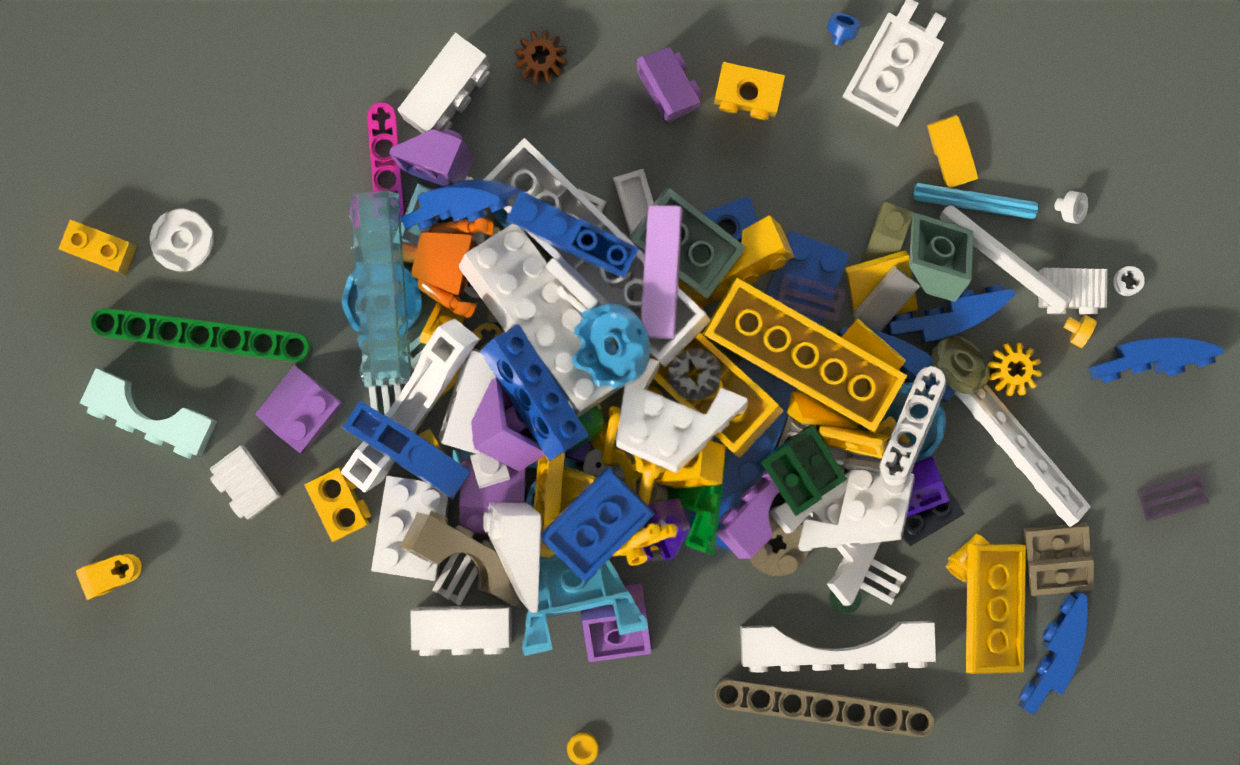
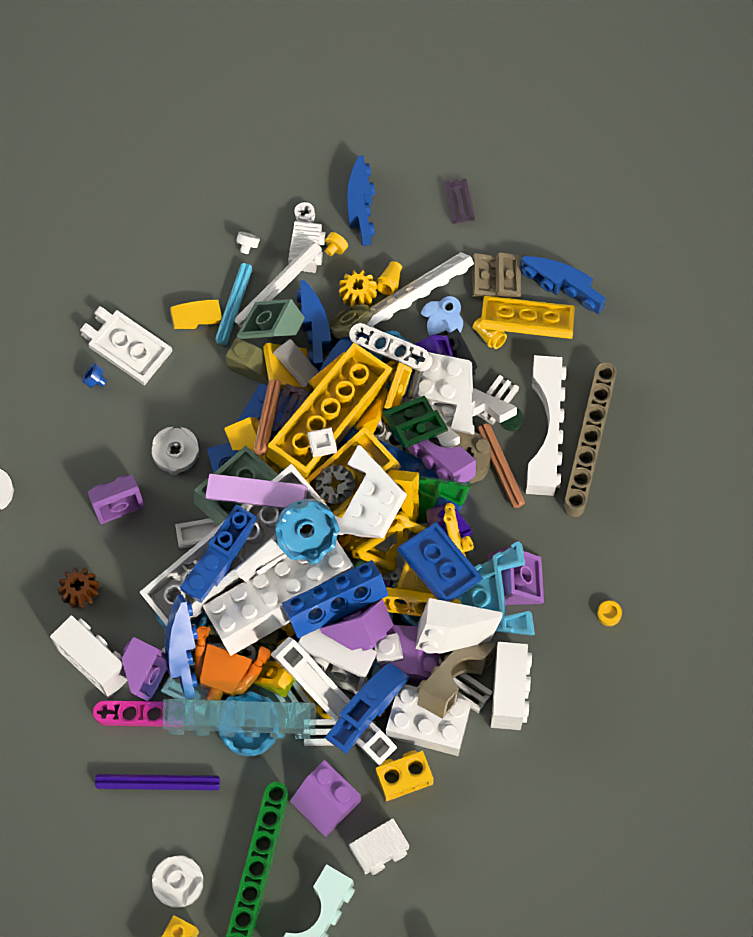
camera: 85 degrees left, 20 degrees down
(300, 197) = (157, 782): none -> dark purple axle
(748, 134) = (175, 462): none -> white plate
(749, 350) = (322, 442): none -> white tile
(766, 83) = (128, 431): yellow brick -> none
(773, 590) = (502, 467): none -> nougat axle
(789, 271) = (267, 417): none -> nougat axle
(982, 489) = (440, 318): none -> light blue plate
(1034, 411) = (389, 279): none -> yellow cone

